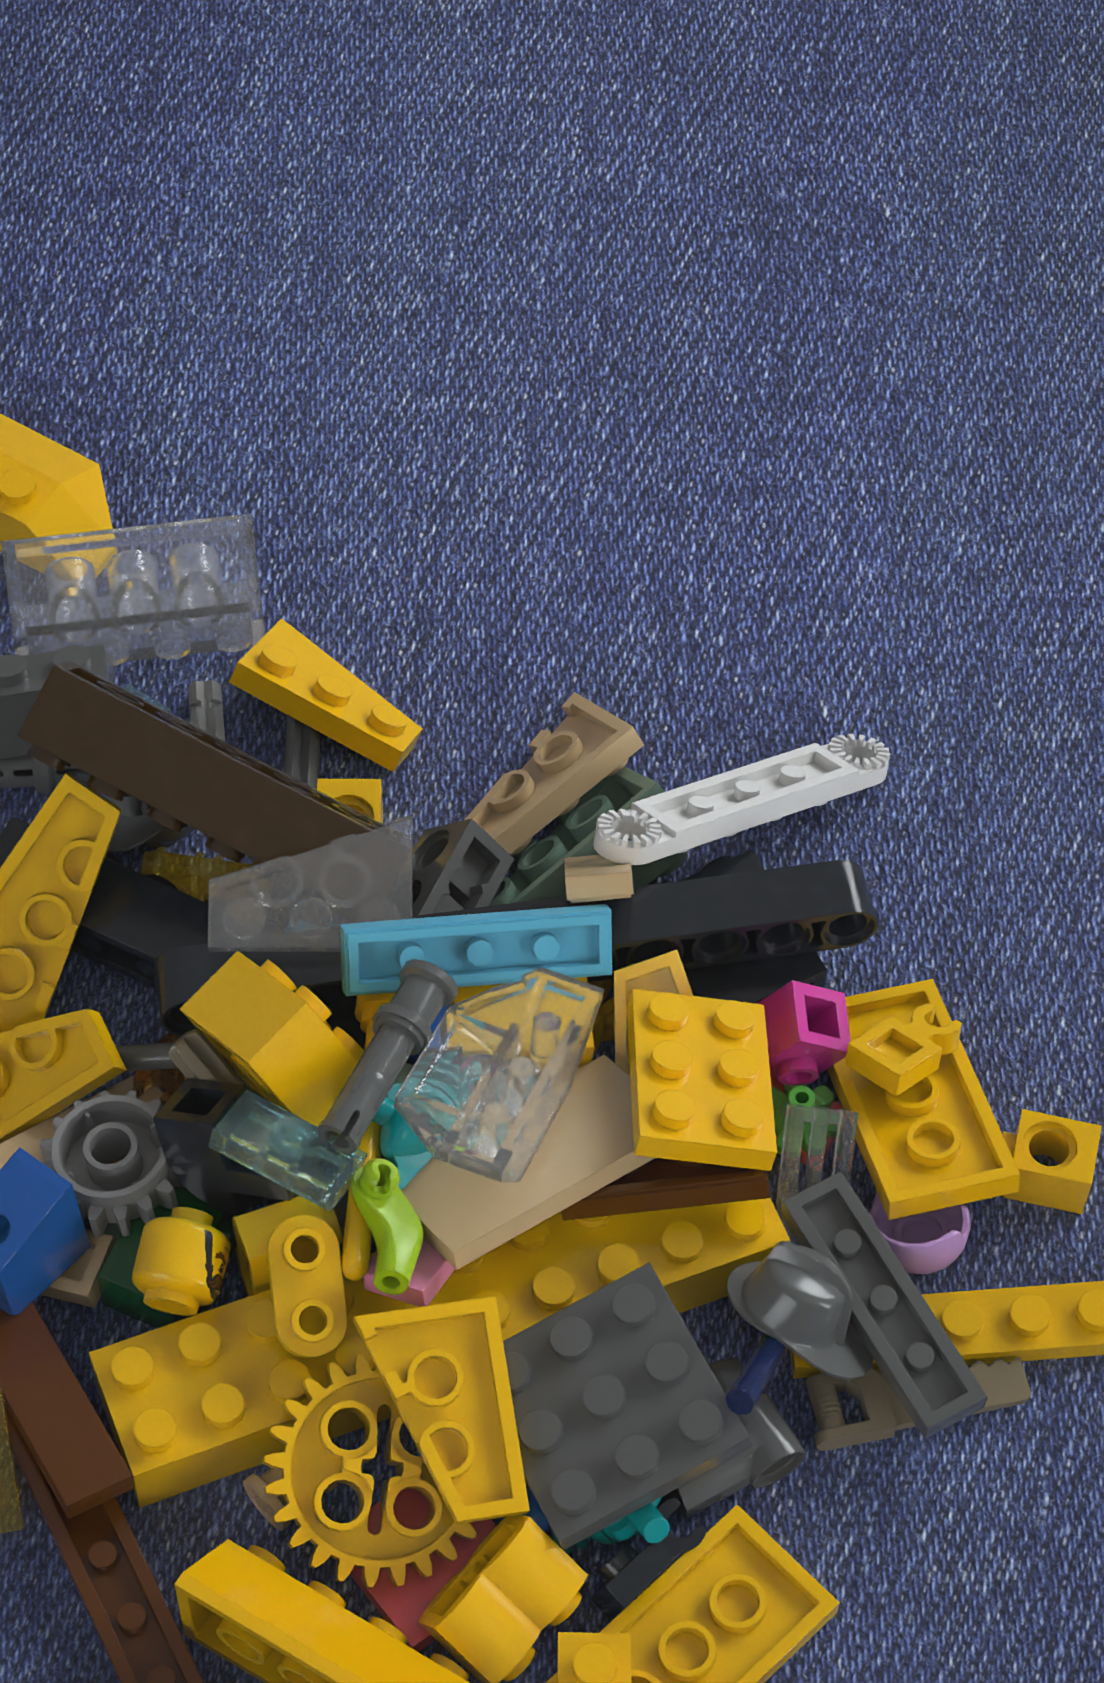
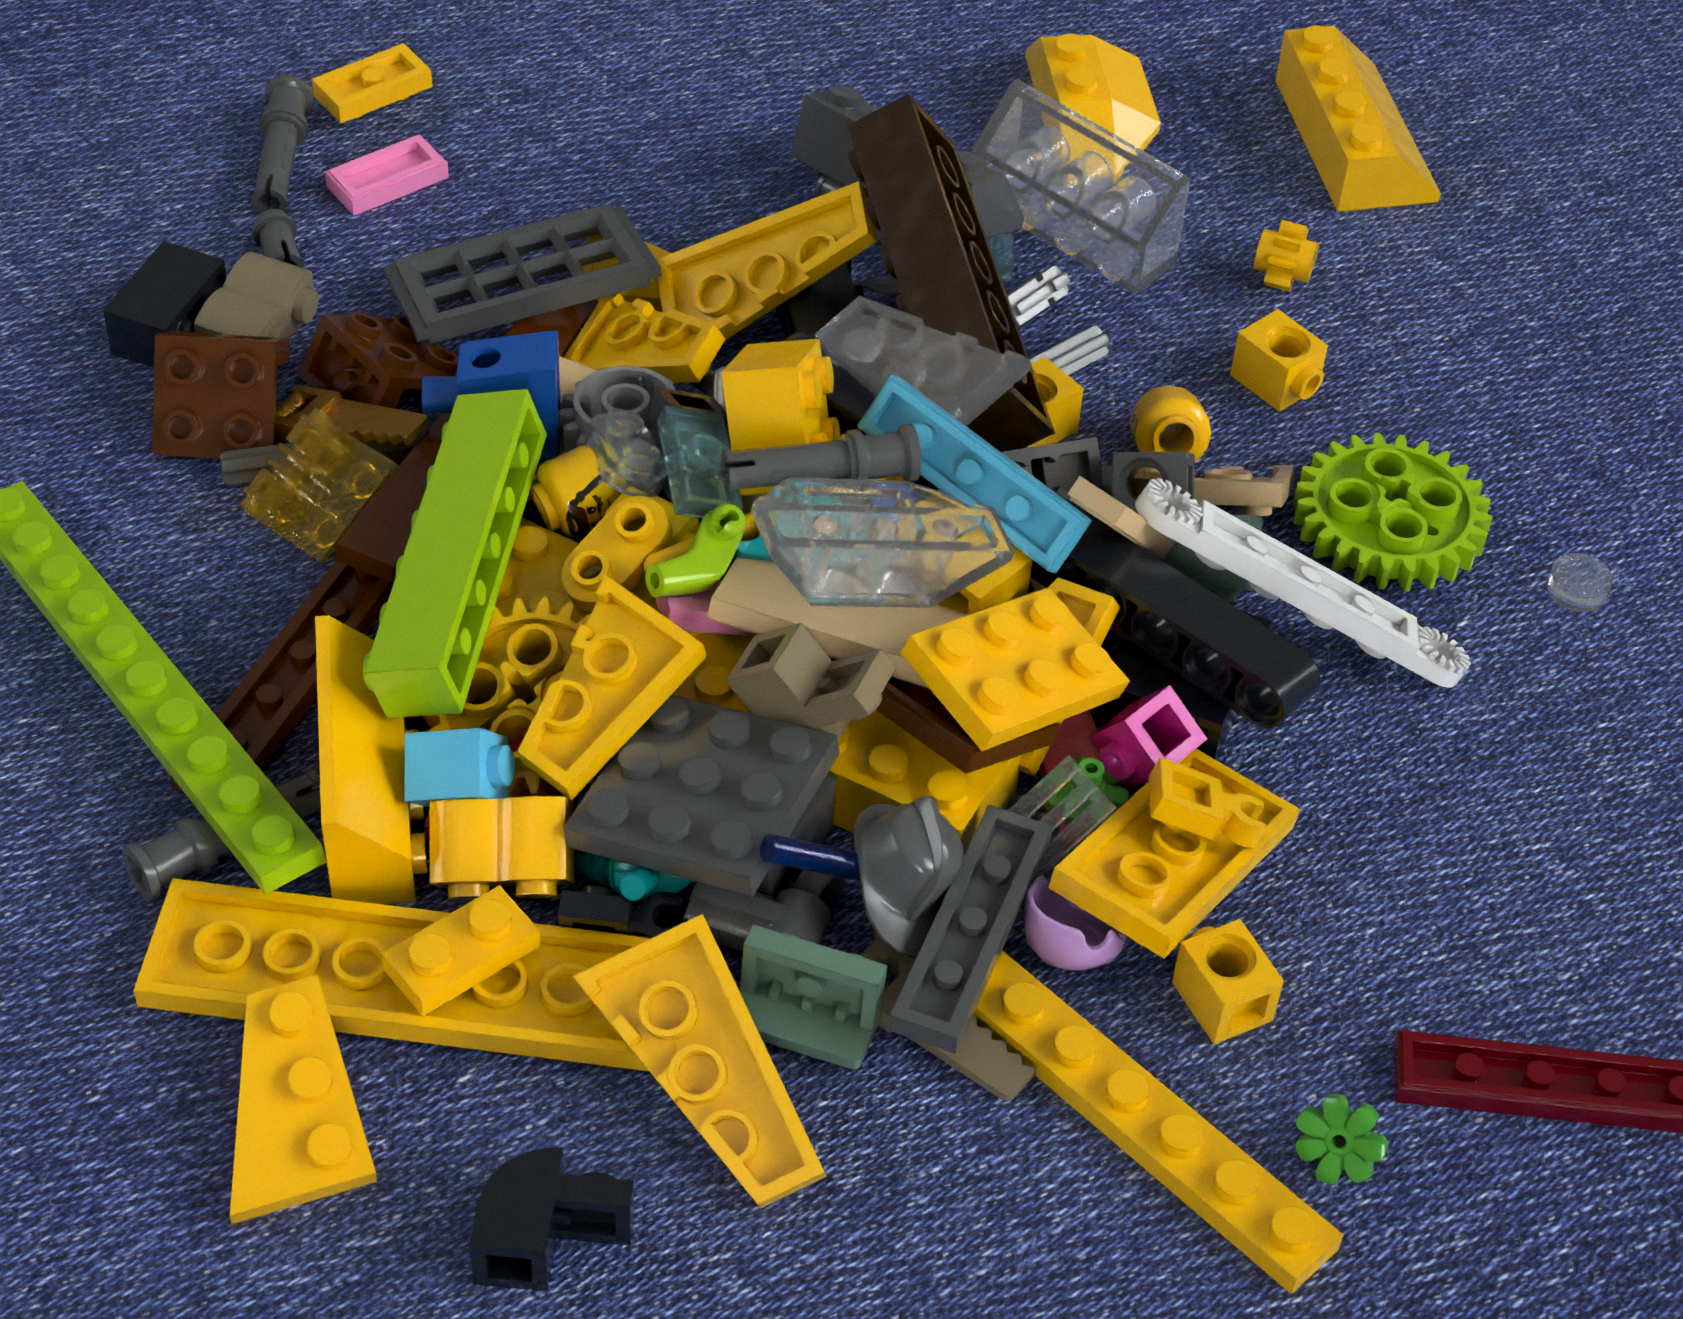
camera: 50 degrees right, 10 degrees down
(197, 1413) = (455, 556): none -> lime brick
(202, 1196) = (627, 453): none -> clear plate
(226, 328) = (1350, 123): none -> yellow slope
(324, 695) = (1121, 328): yellow wing -> none
(347, 505) = (1286, 255): none -> yellow gear
(419, 1579) = (457, 765): none -> medium azure brick
(454, 629) = (1279, 360): none -> yellow brick
(465, 748) = (1170, 421): none -> yellow head
(572, 822) = (1172, 466): none -> dark grey brick
(581, 1251) = (795, 681): none -> dark tan brick
(689, 666) = (1392, 511): none -> lime gear
(837, 1588) = (700, 1043): none -> yellow wing
(843, 1476) = (811, 996): none -> sand green bracket
(858, 599) = (1579, 582): none -> clear tile

